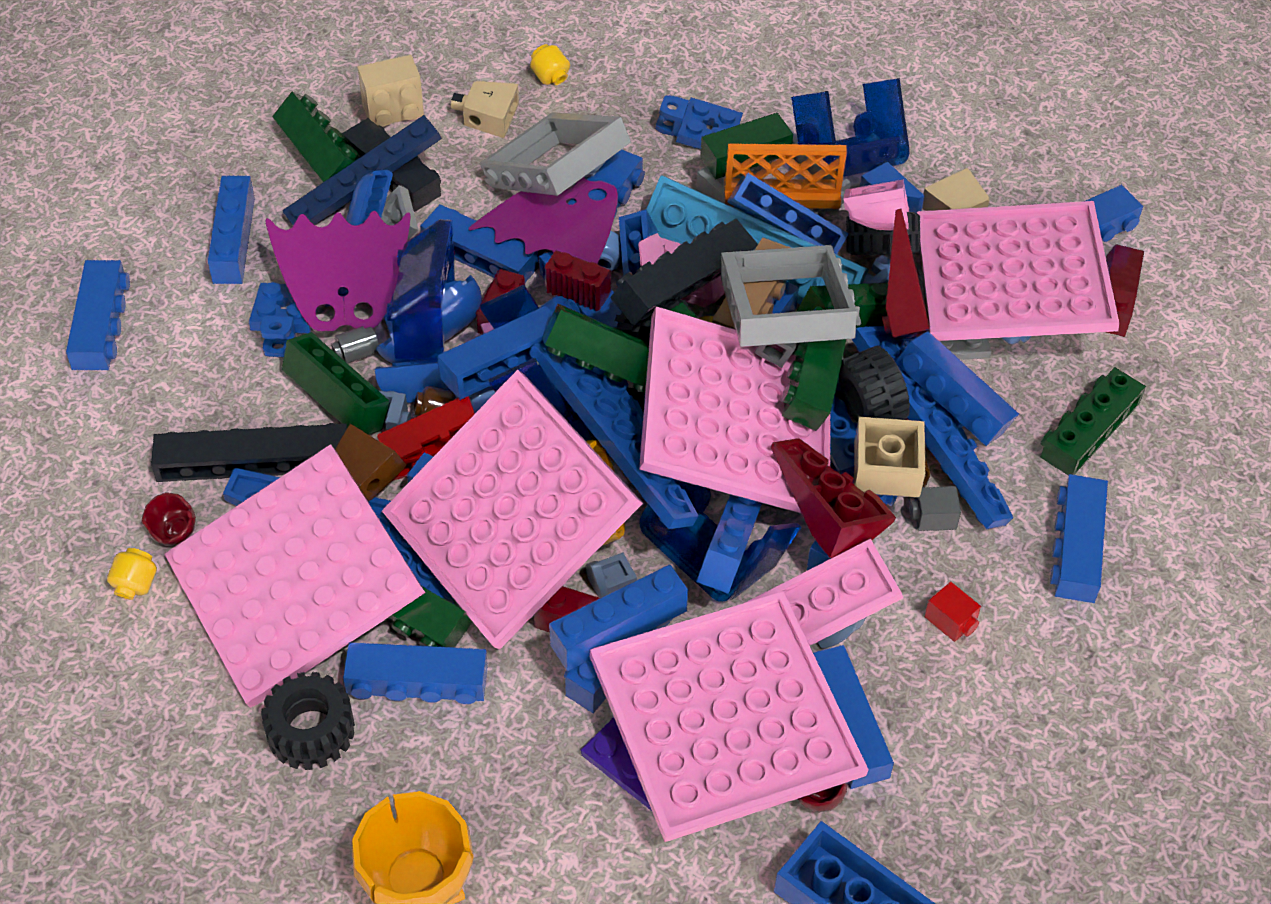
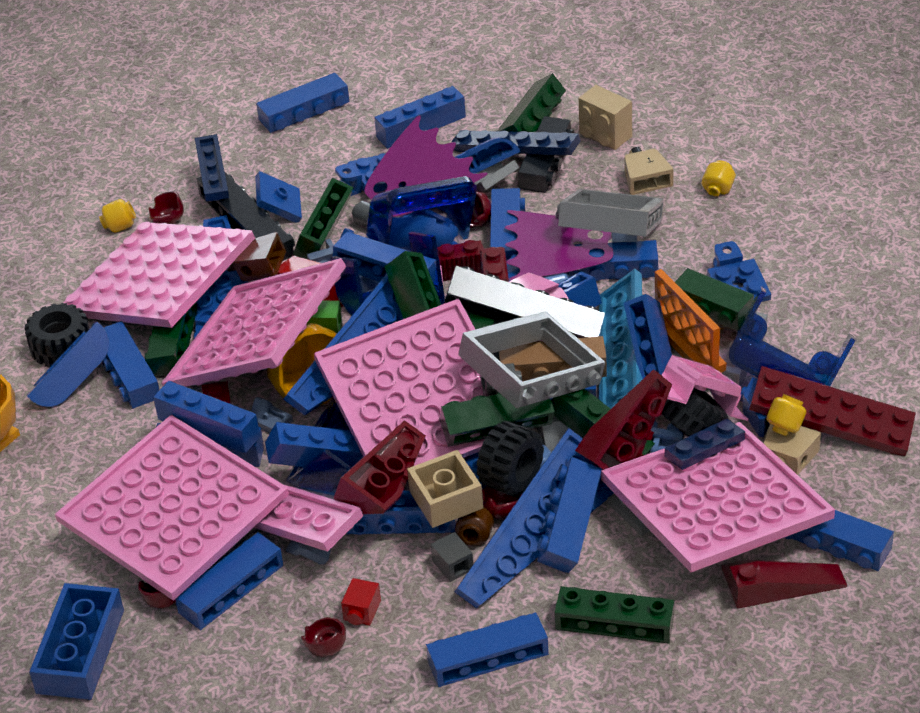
camera: 65 degrees right, 10 degrees down
(158, 439) = (211, 168): none -> dark blue plate
(252, 407) = (278, 197): none -> blue plate
(384, 728) = (71, 368): none -> blue brick
(939, 148) = (838, 411): none -> dark red plate
(943, 245) = (704, 444): none -> dark blue plate
(948, 172) = (786, 415): none -> yellow head
(987, 659) = (324, 637): none -> dark red hair

